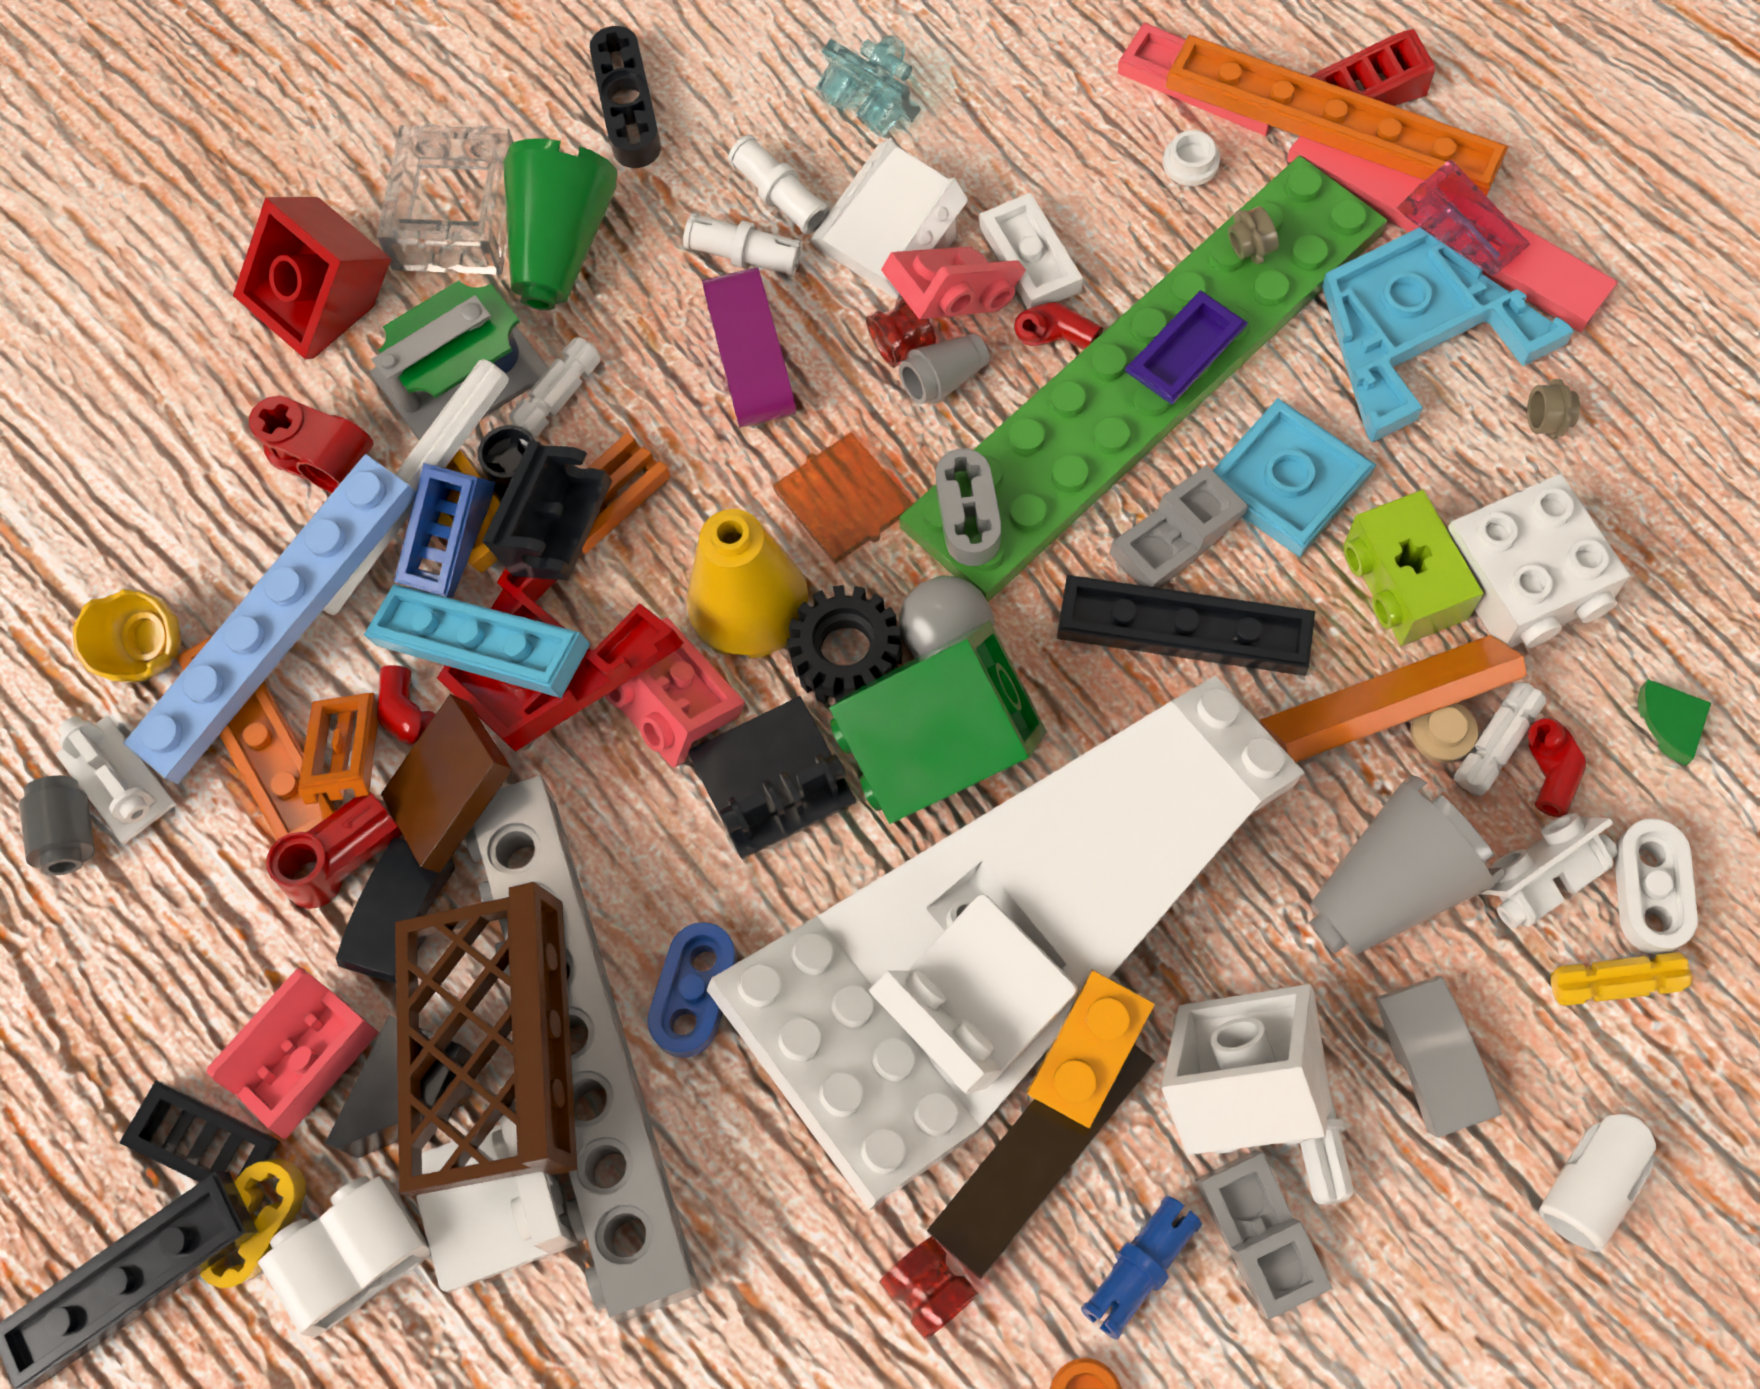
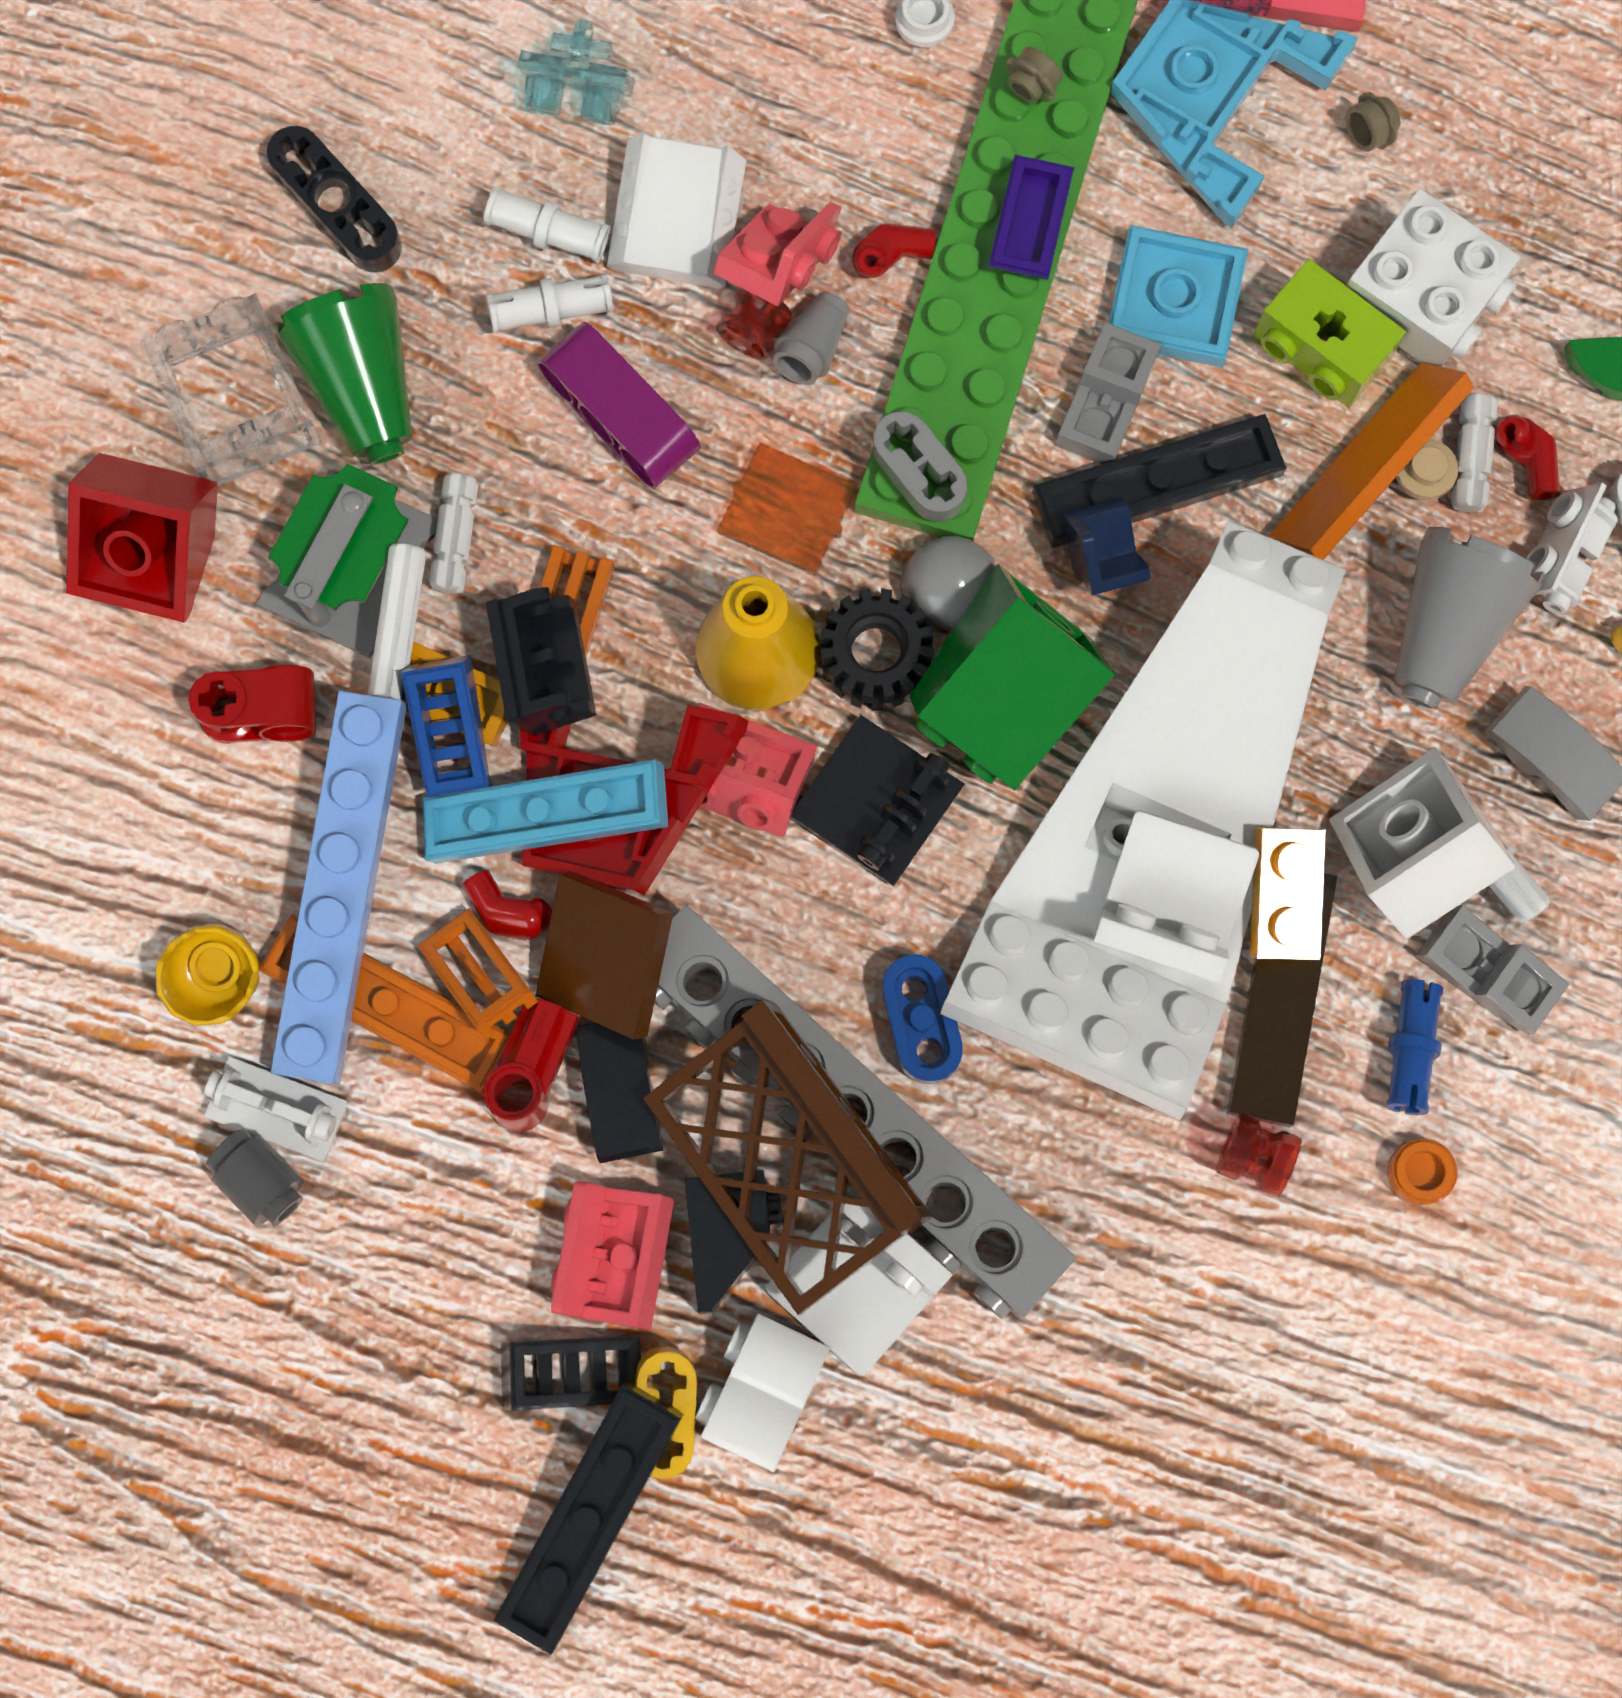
camera: 35 degrees left, 10 degrees up
(501, 453) = (462, 617): black wheel -> none
(1024, 234) = (818, 173): white plate -> none
(1097, 653) = (1104, 547): none -> dark blue panel

